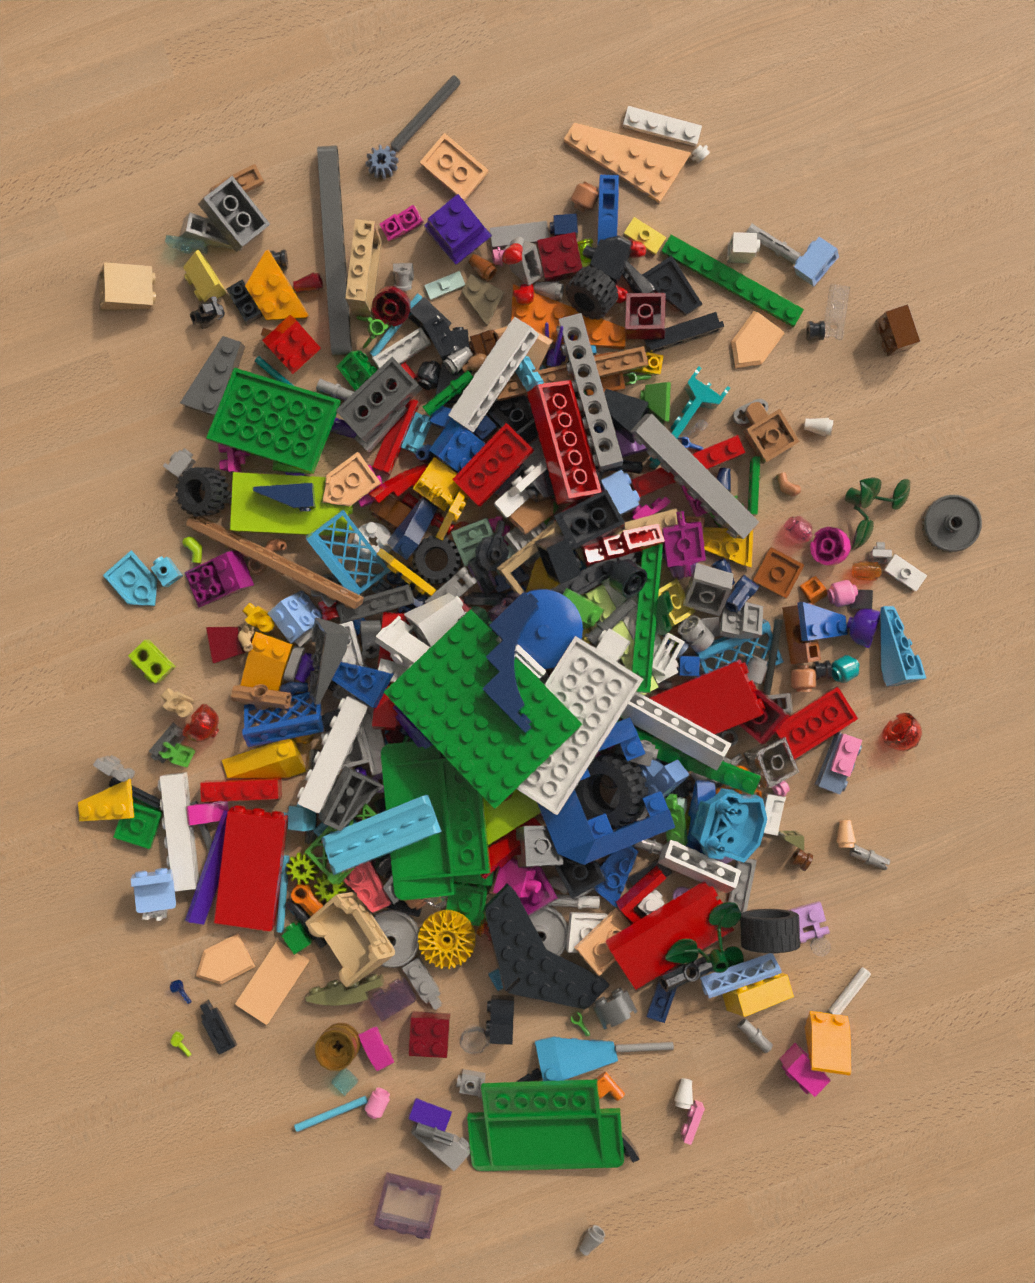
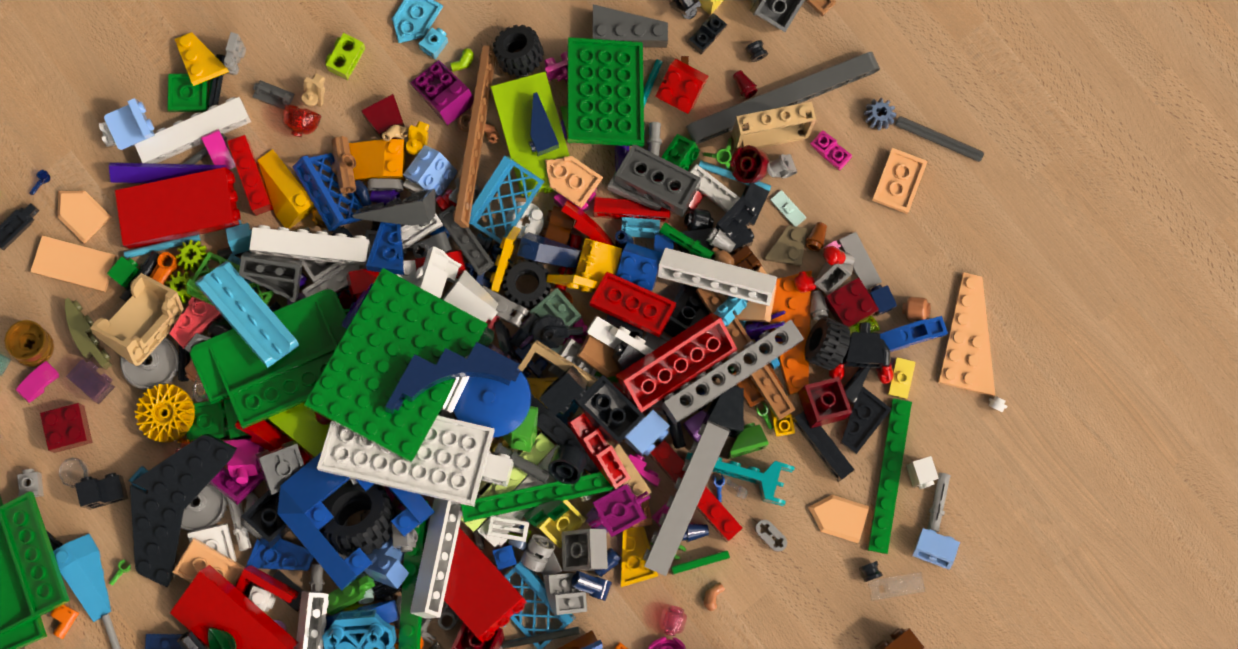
camera: 65 degrees right, 10 degrees down
(179, 754) = (265, 108): bright green plate -> none
(180, 462) = (539, 23): light grey brick -> none
(273, 291) = (725, 55): light orange wing -> none
(423, 982) = (115, 406): light grey hinge -> none
(456, 229) = (842, 201): dark purple piece -> none
(485, 429) = (666, 288): dark blue brick -> none
(614, 1008) = (144, 598): dark grey brick -> none
(662, 126) = (1010, 360): white plate -> none
(757, 669) = (521, 625): light grey brick -> none
(767, 432) = (756, 558): medium nougat brick -> none
(778, 572) = (624, 615): dark orange plate -> none
(820, 426) = (781, 609): white cone -> none

